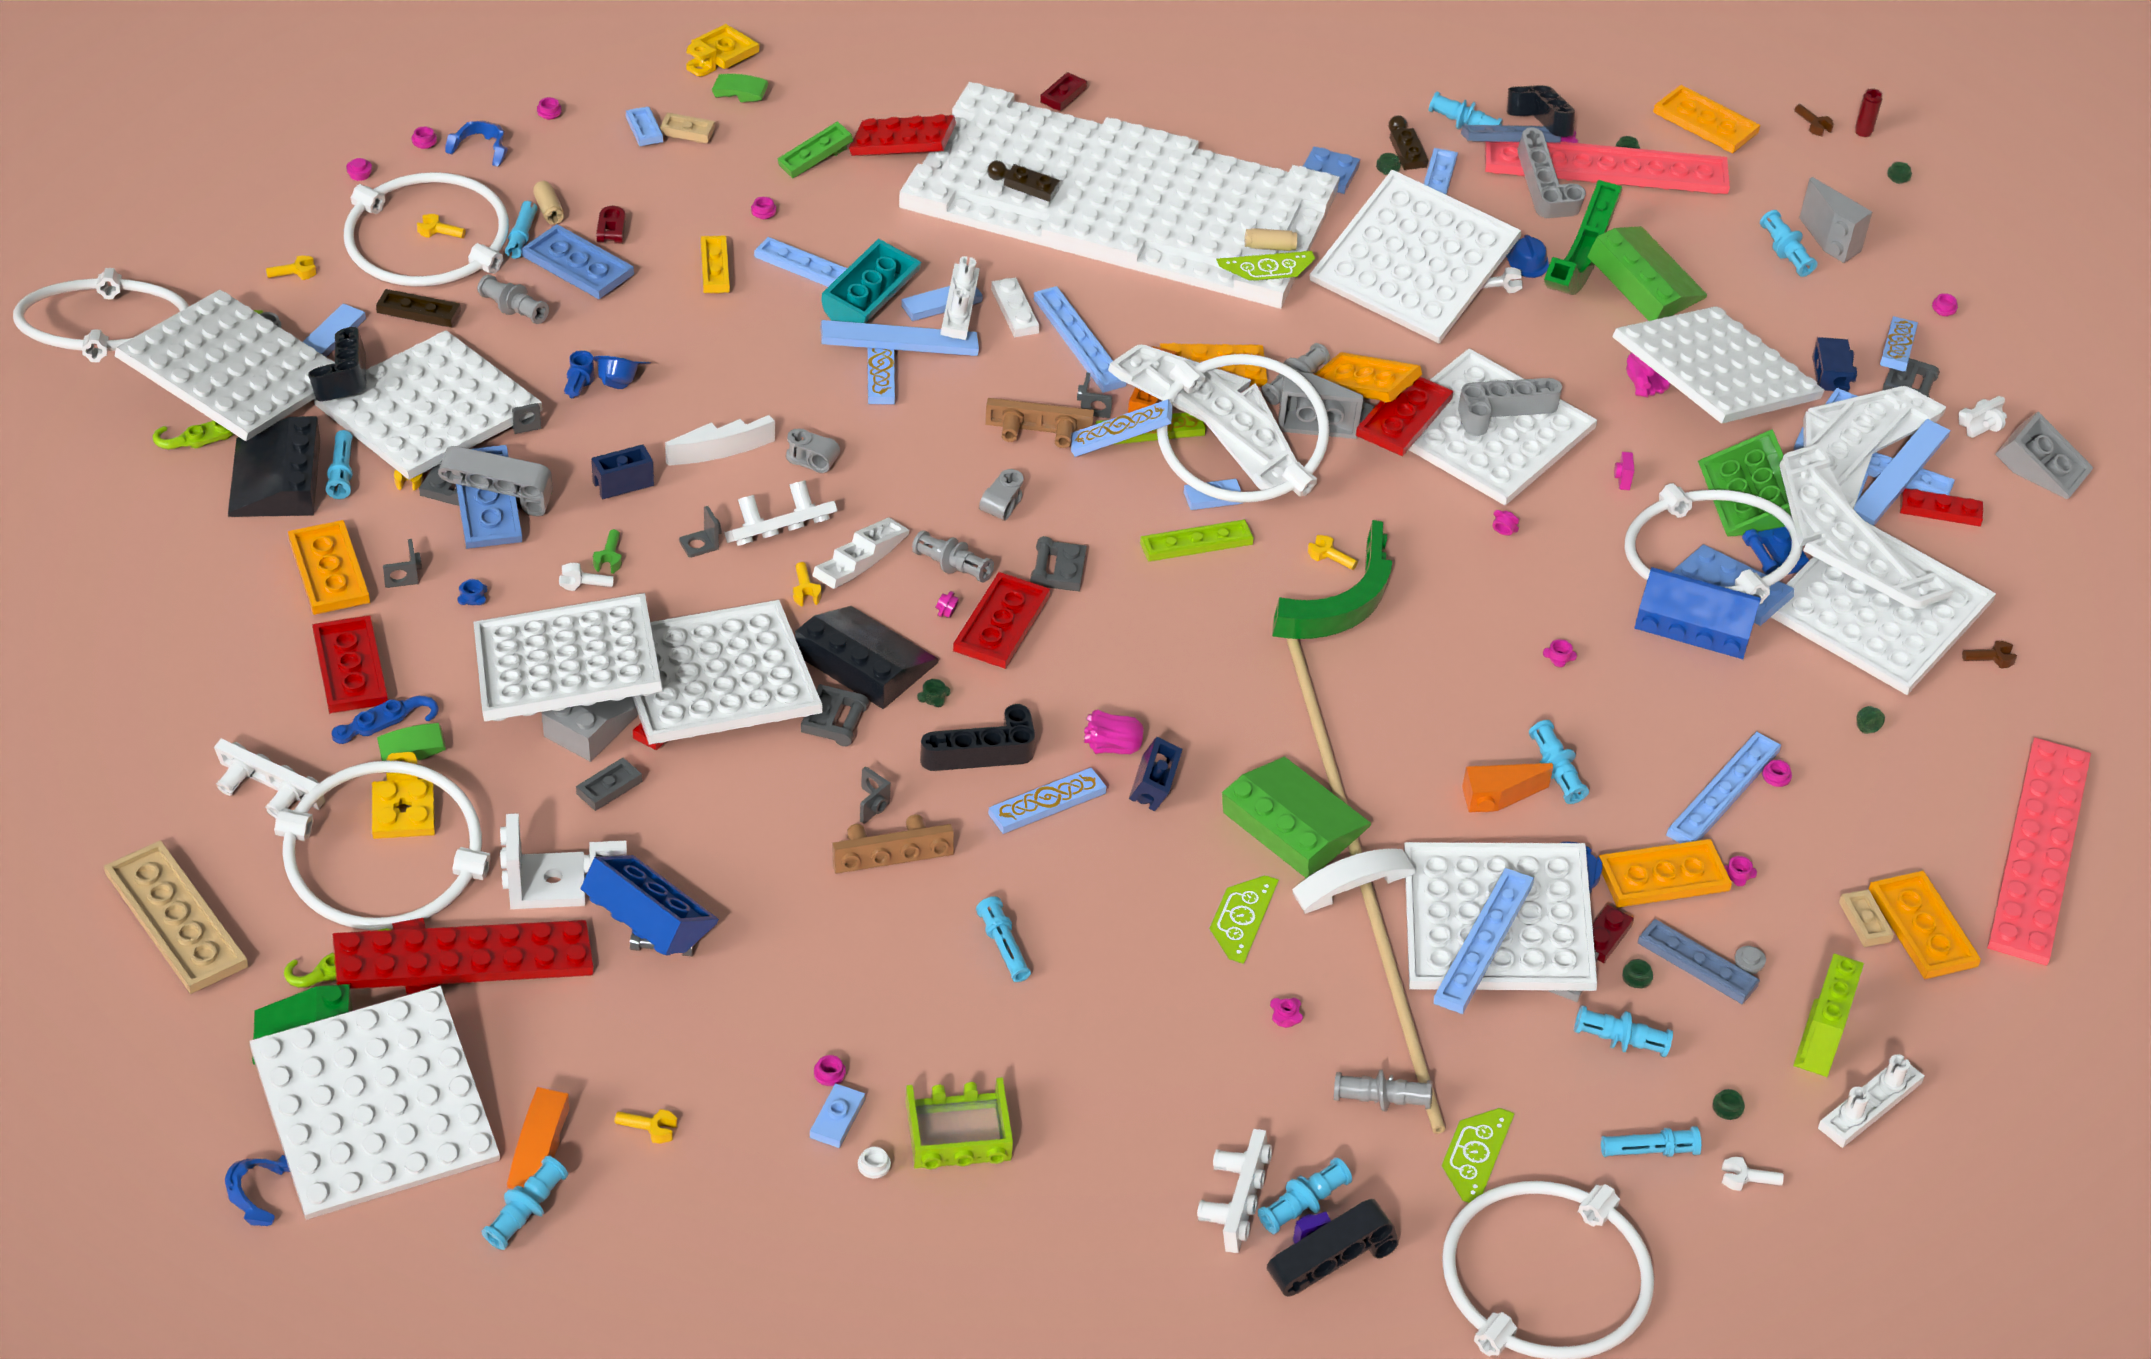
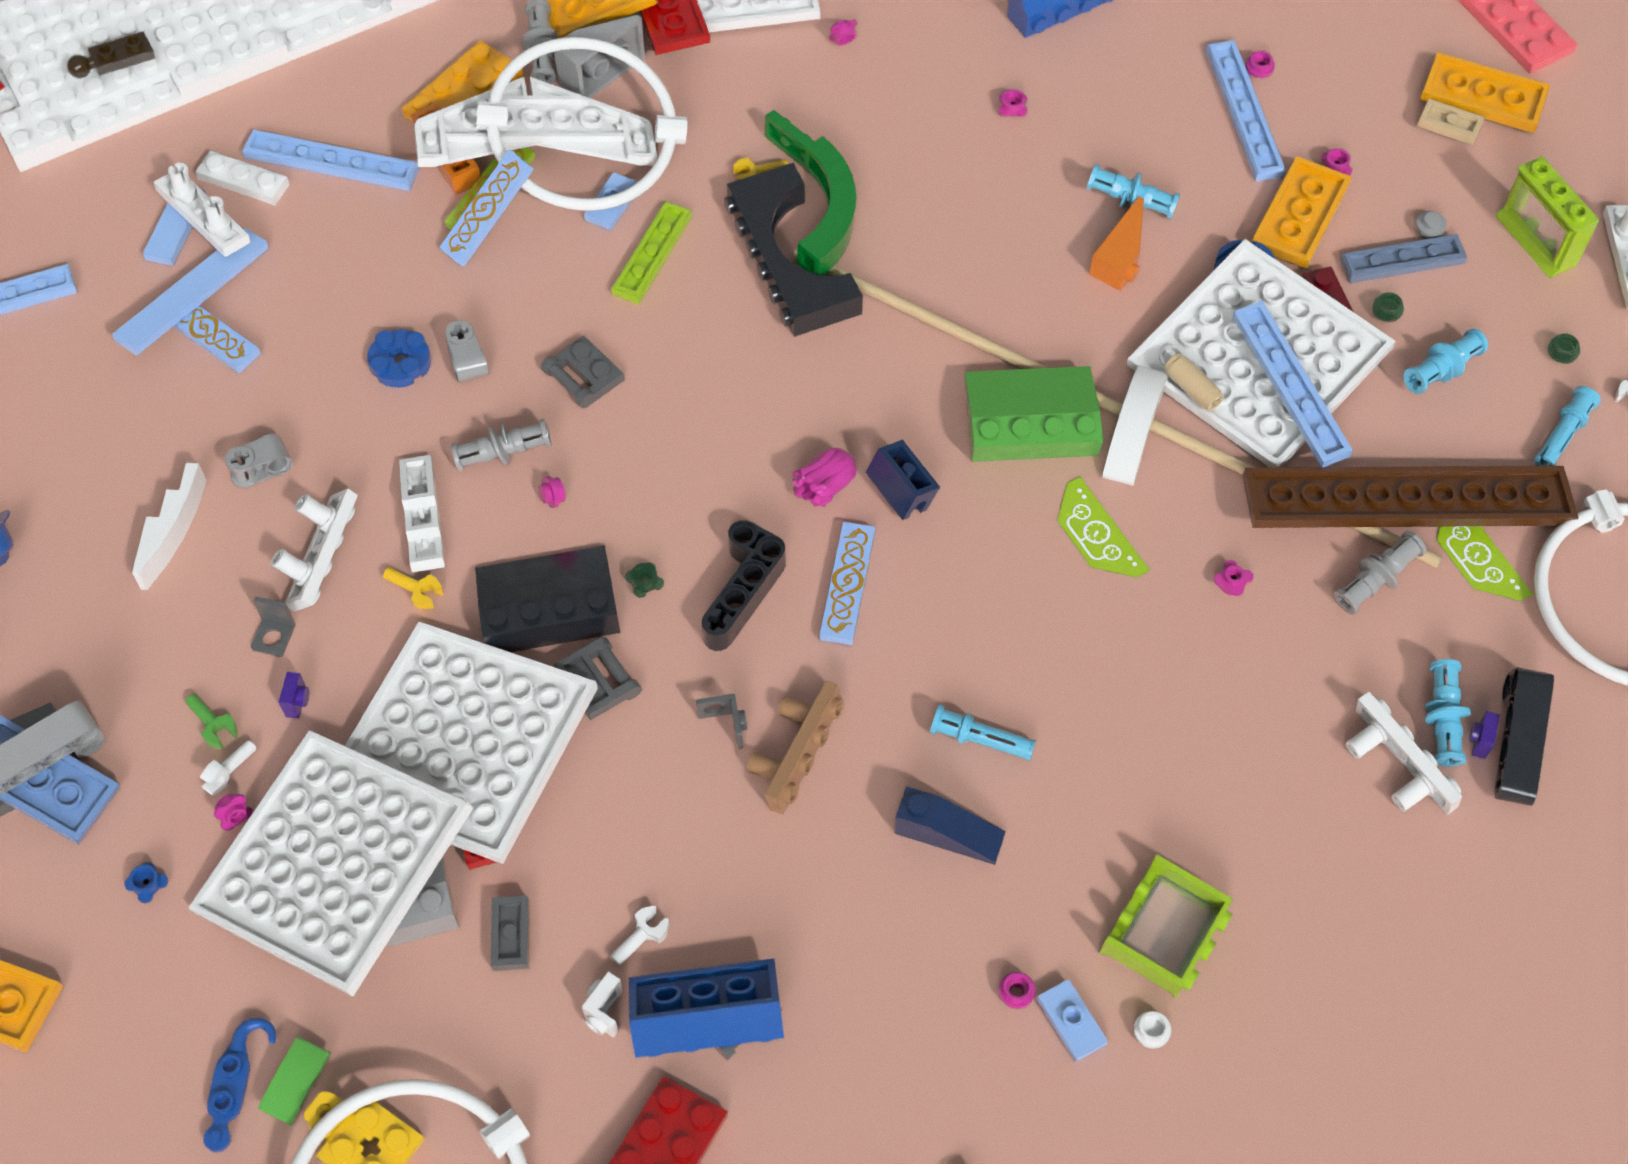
camera: 45 degrees left, 15 degrees up
(349, 664) = (131, 1065): red plate -> none
(409, 567) = (63, 919): dark grey bracket -> none
(528, 873) = (563, 1094): white bracket -> none
(556, 592) = (232, 811): none -> dark pink plate
(622, 471) = (129, 635): dark blue brick -> none
(664, 575) = (293, 695): none -> dark purple plate
(678, 852) = (641, 934): none -> white bar
(868, 283) = (104, 265): teal brick -> none
(912, 959) = (947, 826): none -> dark blue slope
(968, 457) = (394, 343): none -> blue plate
(1001, 620) = (609, 463): red plate -> none
(1037, 417) = (402, 255): medium nougat plate -> none
(1087, 398) = (415, 210): dark grey bracket -> none
(1295, 569) = (804, 298): none -> black arch
(1421, 885) = (1194, 382): none -> tan piece
(1472, 1074) = (1408, 496): none -> reddish brown plate

